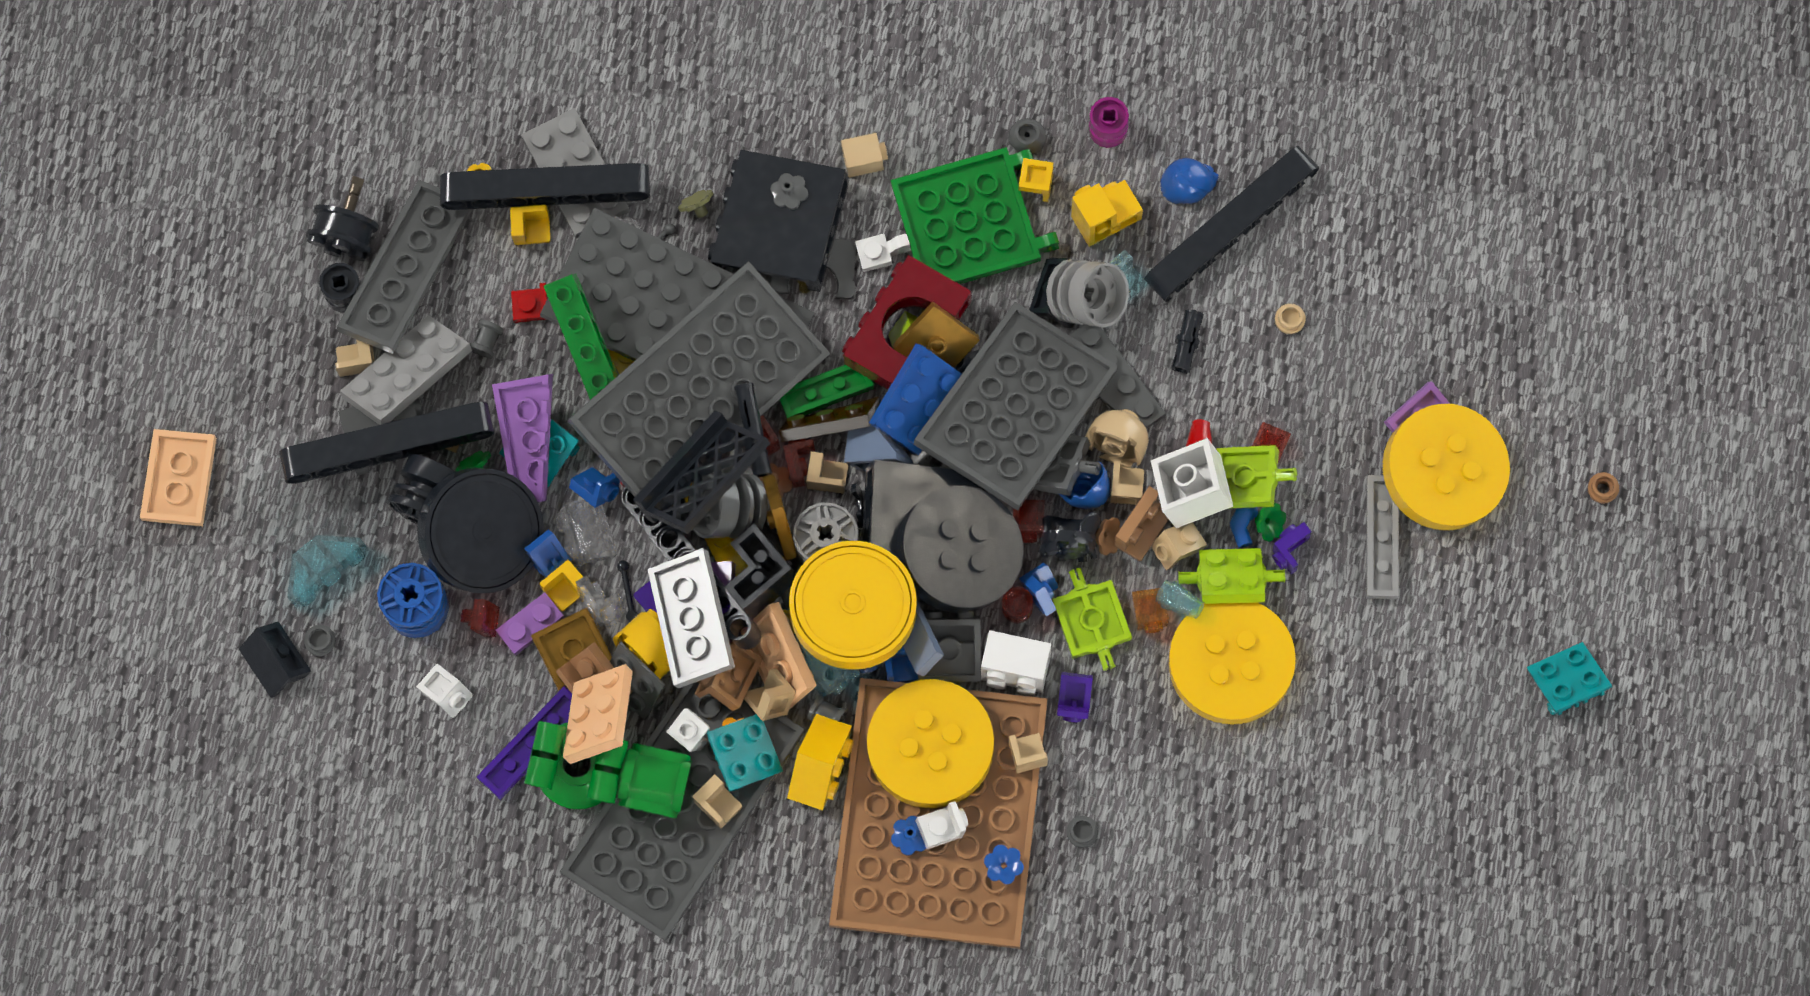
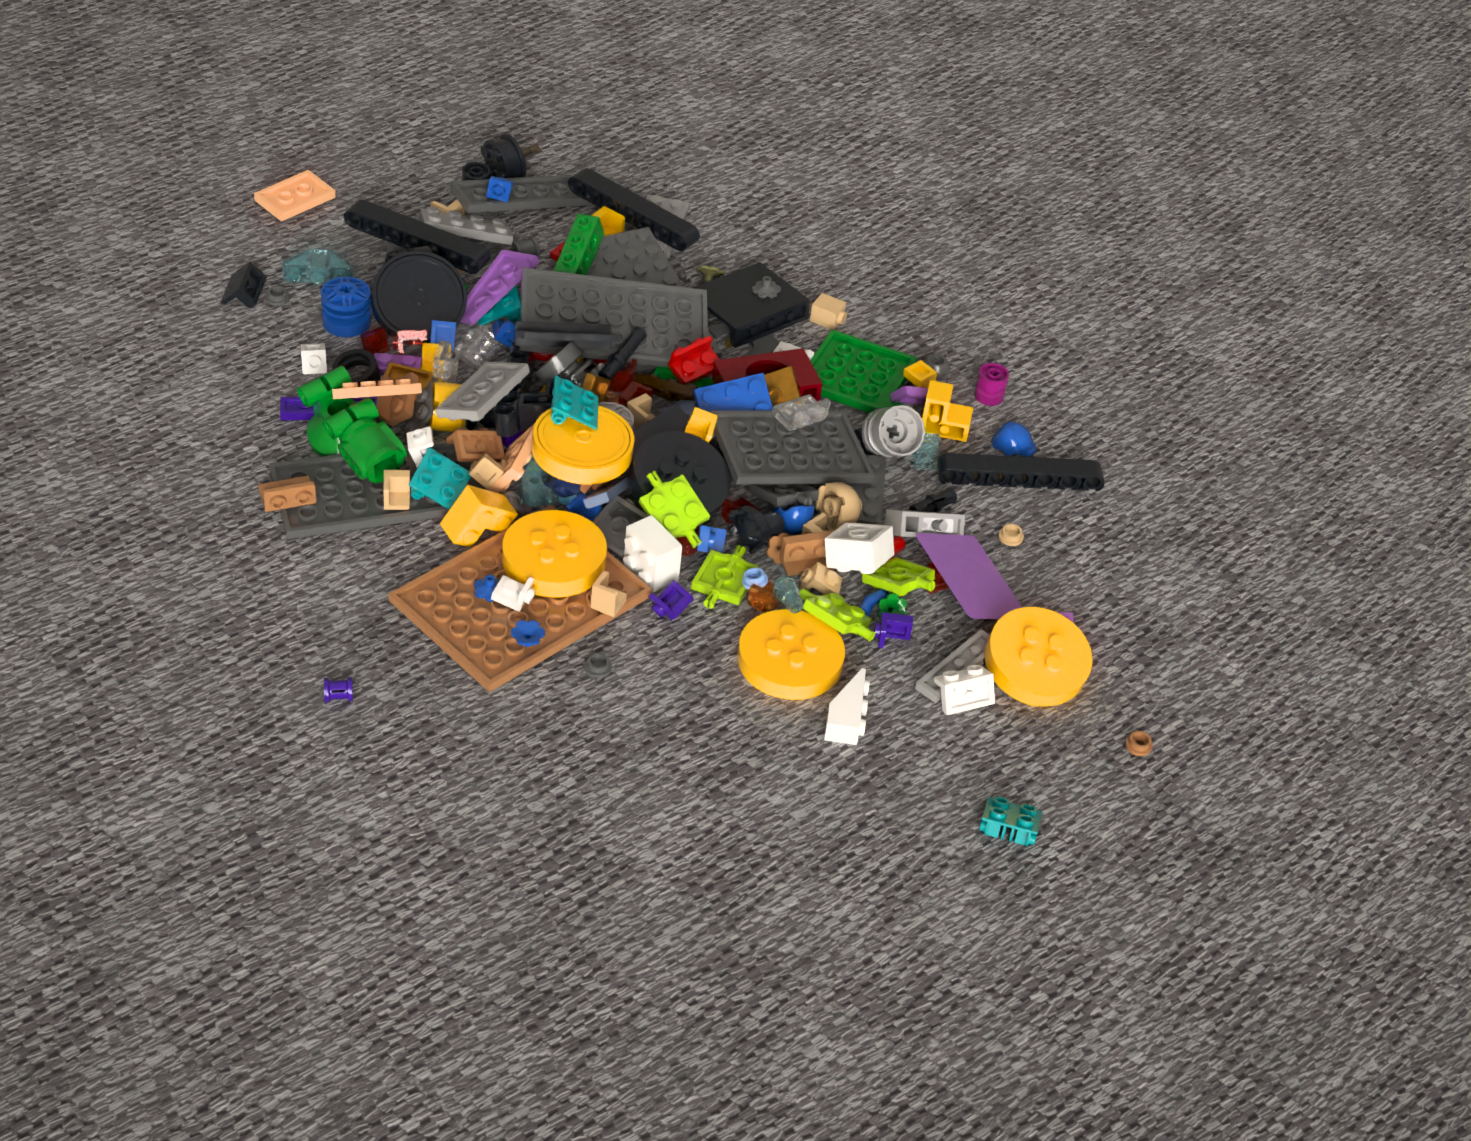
camera: 30 degrees right, 30 degrees down
(395, 291) = (499, 188): none -> blue bracket
(520, 587) = (413, 336): none -> clear red bracket
(533, 681) = (359, 357): none -> black tyre
(621, 896) = (287, 493): none -> medium nougat bracket
(813, 574) = (573, 402): none -> teal hinge
(820, 367) = (693, 361): none -> red bracket
(927, 473) = (701, 424): none -> yellow panel
(988, 354) = (801, 412): none -> clear bracket
(998, 599) = (675, 507): none -> plate
(1055, 210) = (910, 395): none -> medium lavender tile
(1121, 602) = (754, 576): none -> light blue plate
(1208, 386) = (909, 523): none -> light grey slope
(1304, 412) = (969, 575): none -> medium lavender sticker
(1340, 690) = (845, 711): none -> white slope
(1413, 563) = (966, 689): none -> white bracket

